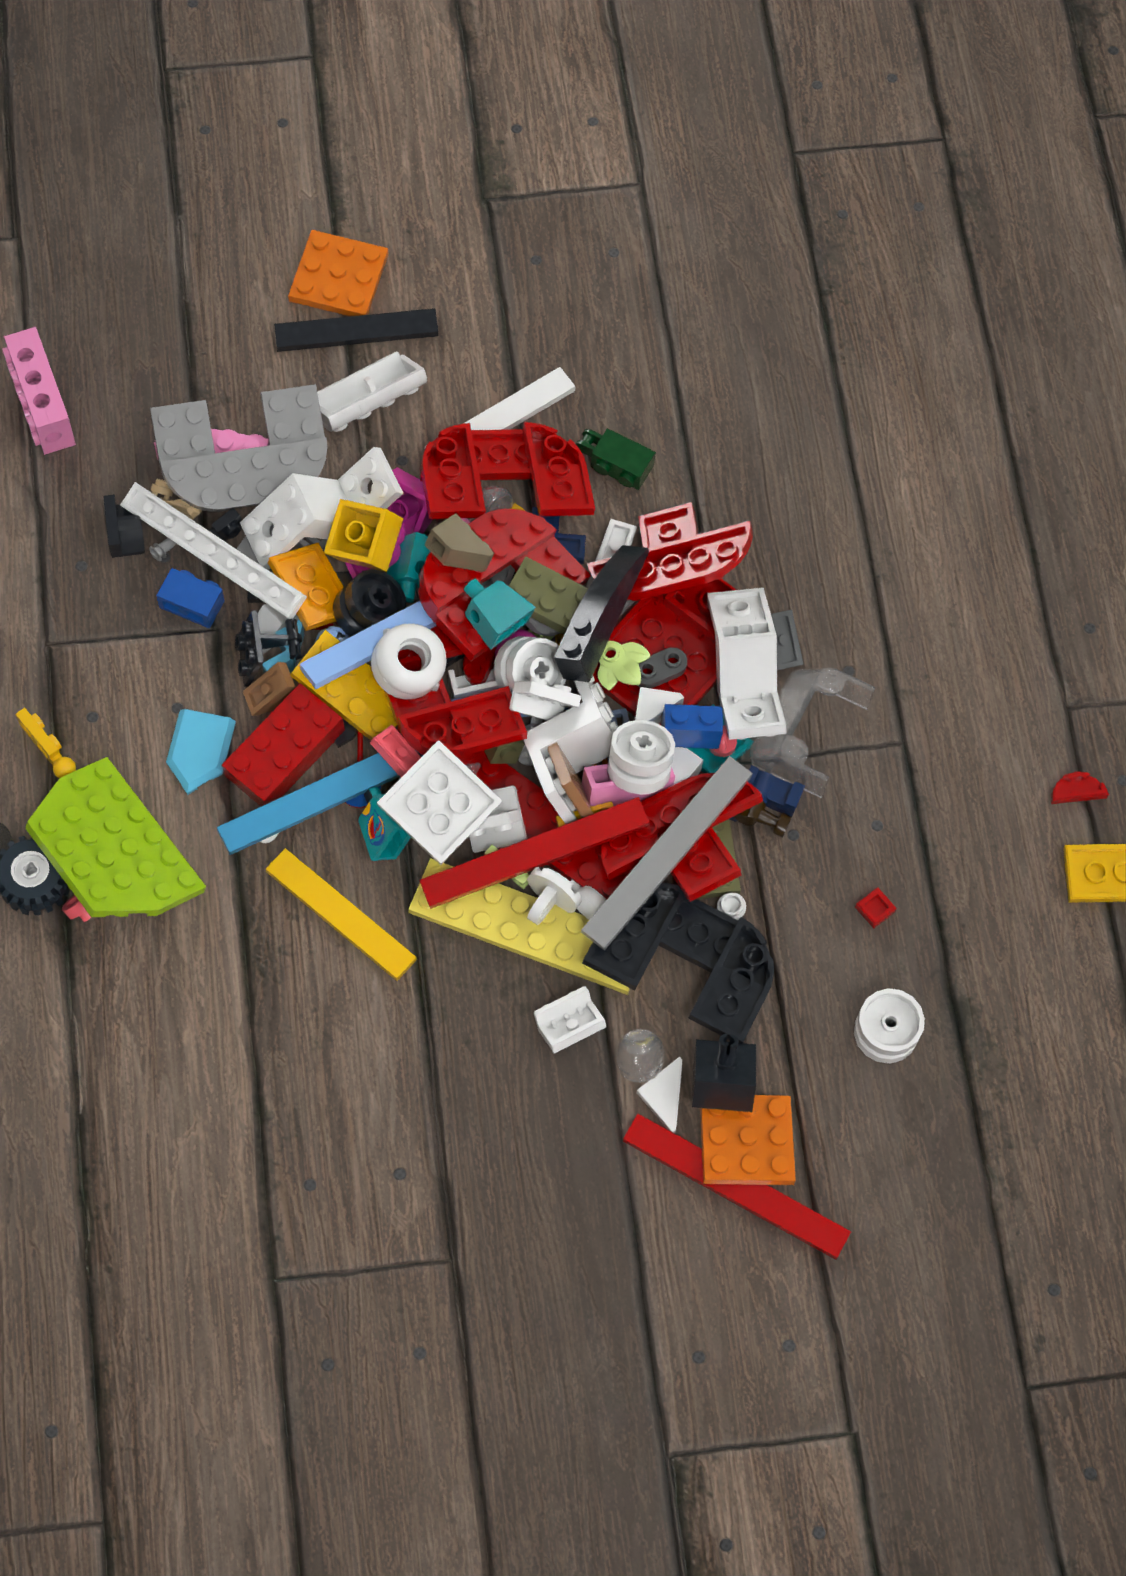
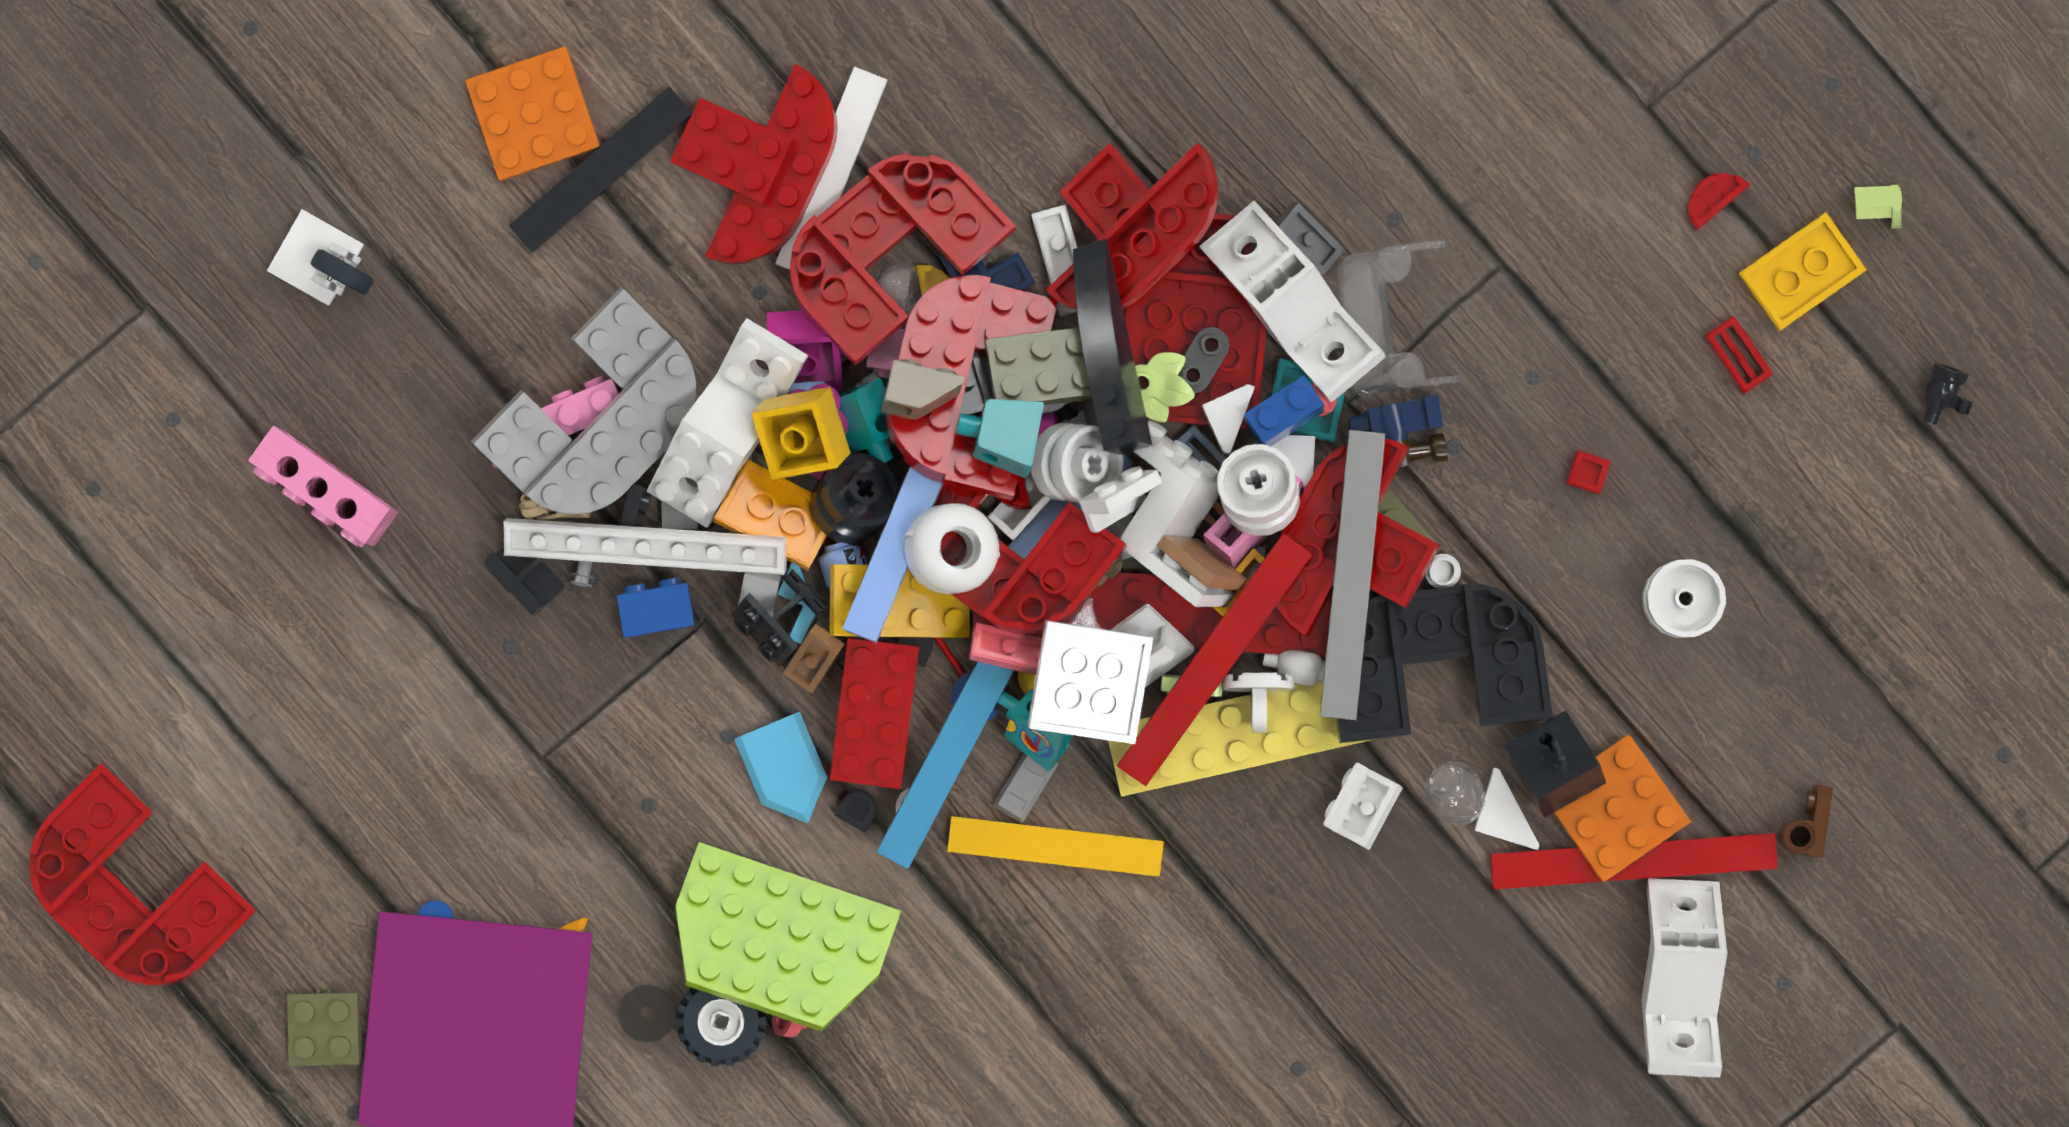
camera: 30 degrees left, 20 degrees up
(47, 744) = (664, 884): yellow plate -> none
(142, 271) = (320, 260): none -> white plate
(226, 806) = (857, 809): none -> black tile
(347, 864) = (1022, 788): none -> light grey tile
(368, 390) = (670, 240): white container -> none
(459, 385) = (767, 167): none -> red plate
(618, 457) = (991, 137): dark green brick -> none
(717, 1282) = (1684, 977): none -> white bracket
(882, 1243) = (1818, 805): none -> reddish brown plate
(1031, 921) = (1726, 362): none -> red tile

